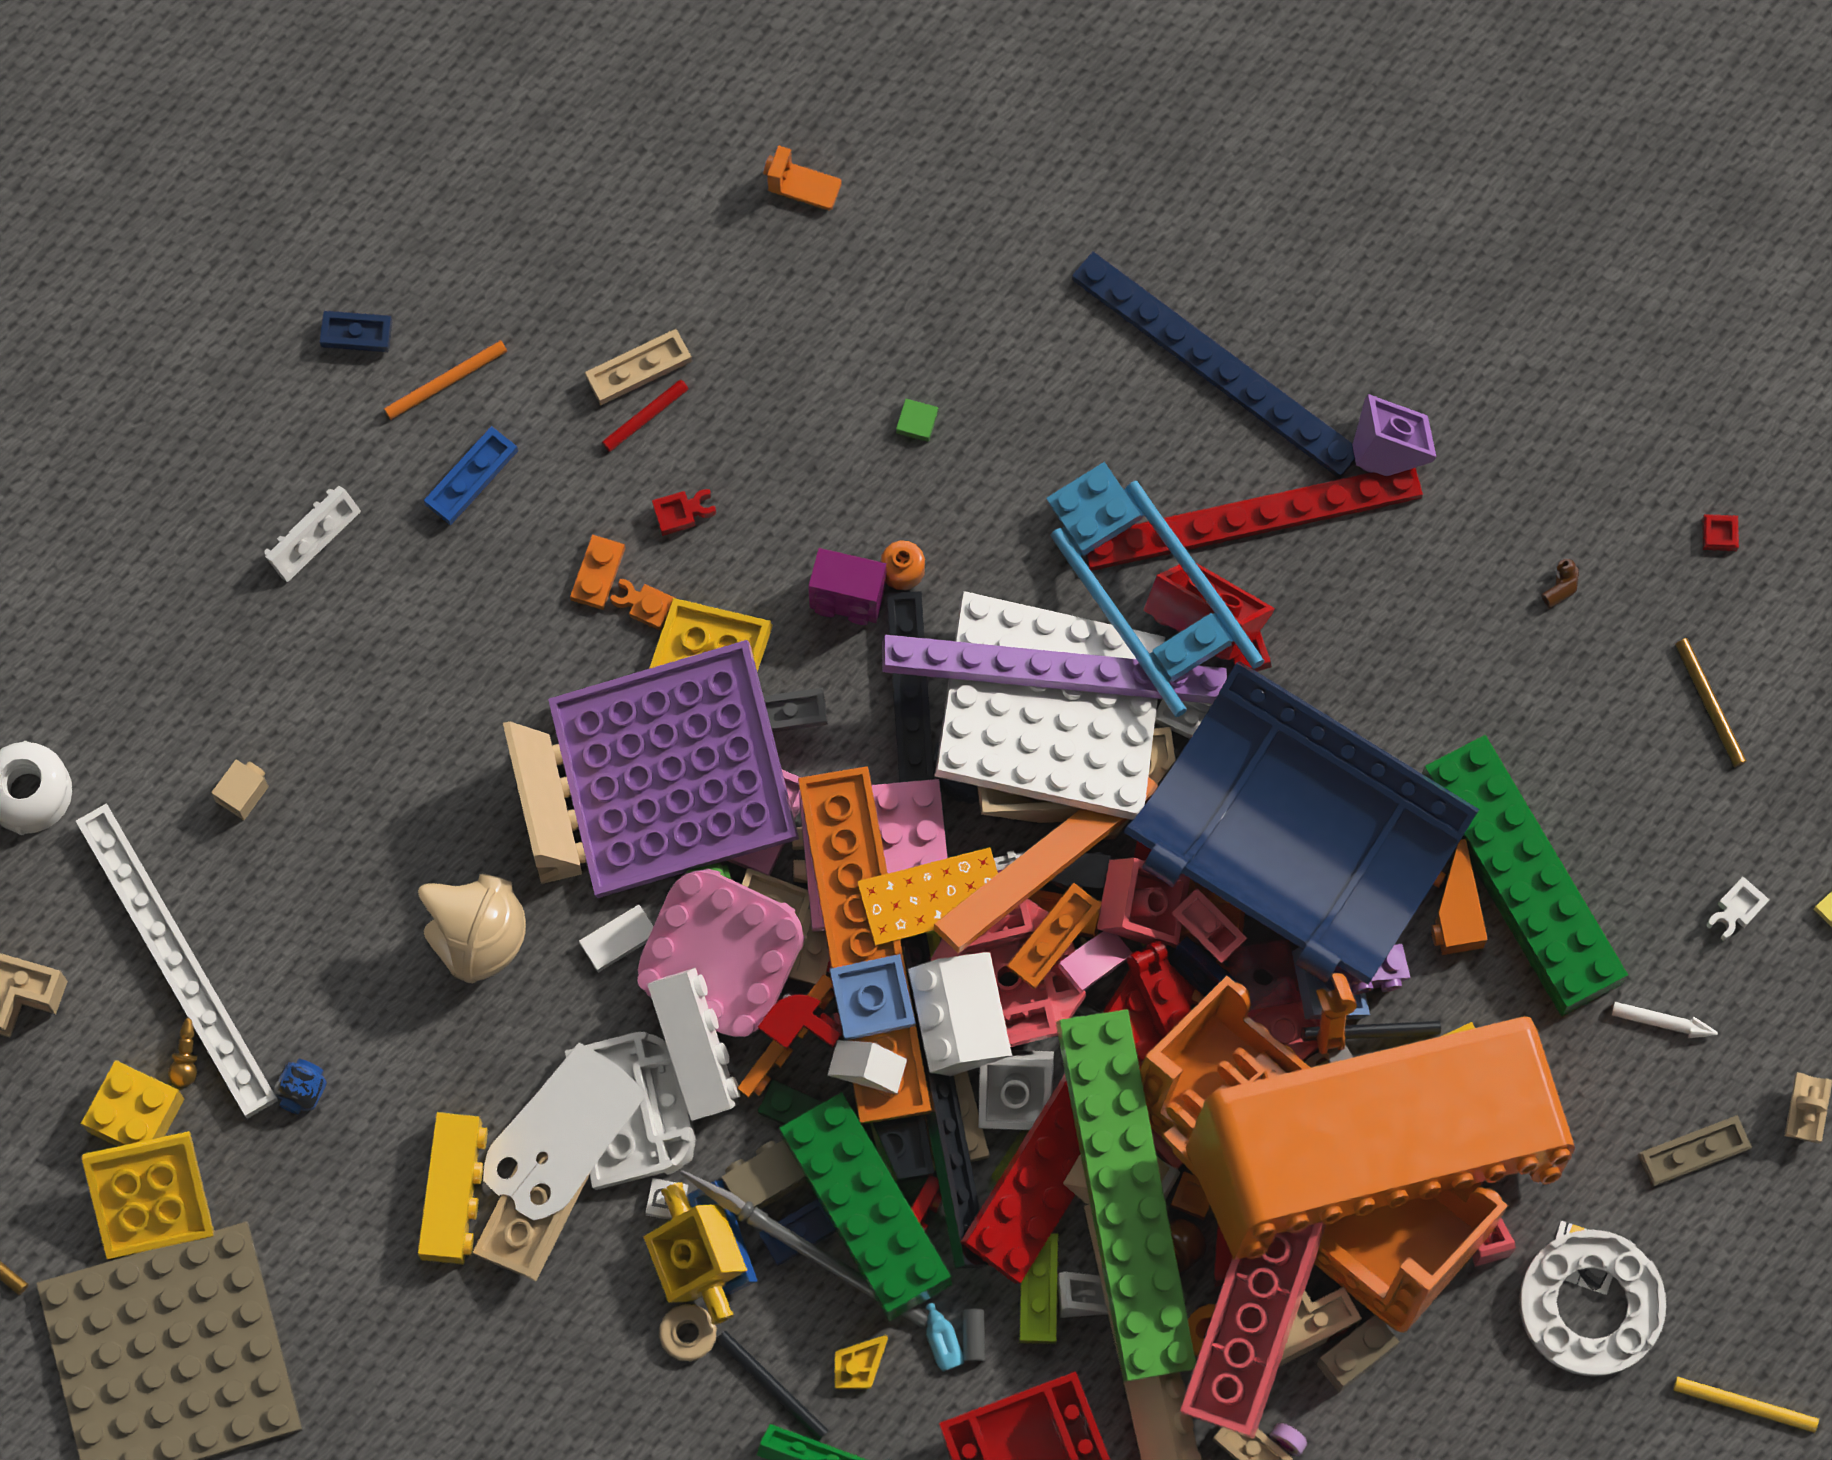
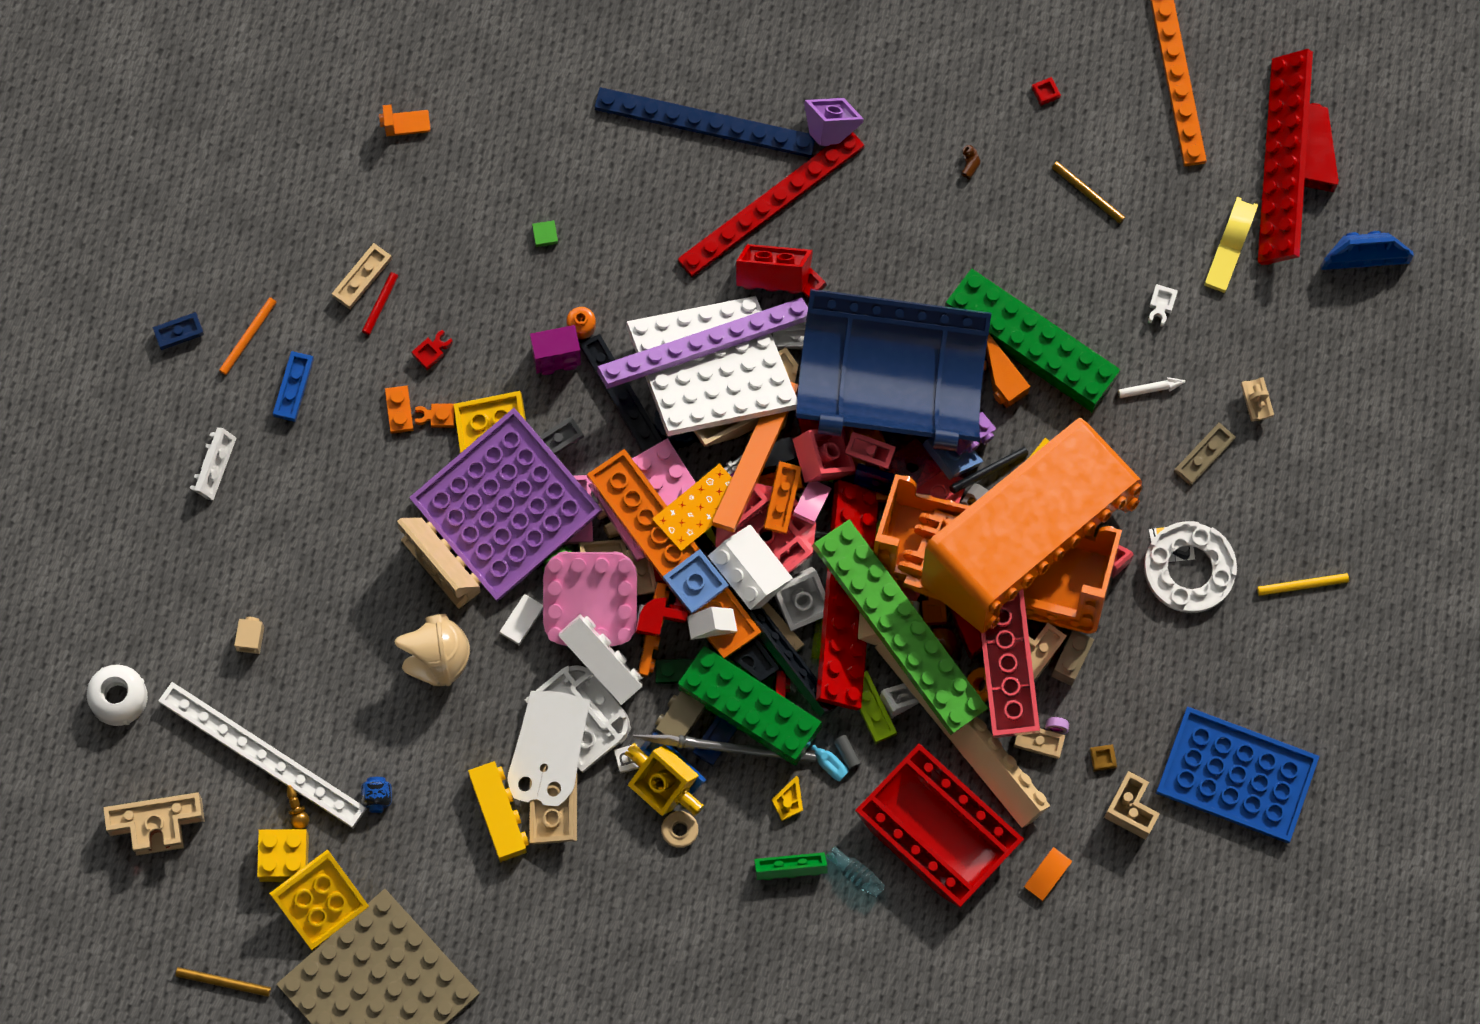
camera: 30 degrees left, 0 degrees up
(772, 1385) = (744, 836): black bar -> none
(1097, 510) = (679, 240): dark azure plate -> none
(1160, 987) = (858, 501): red plate -> none
(1335, 1008) = (967, 461): orange piece -> none

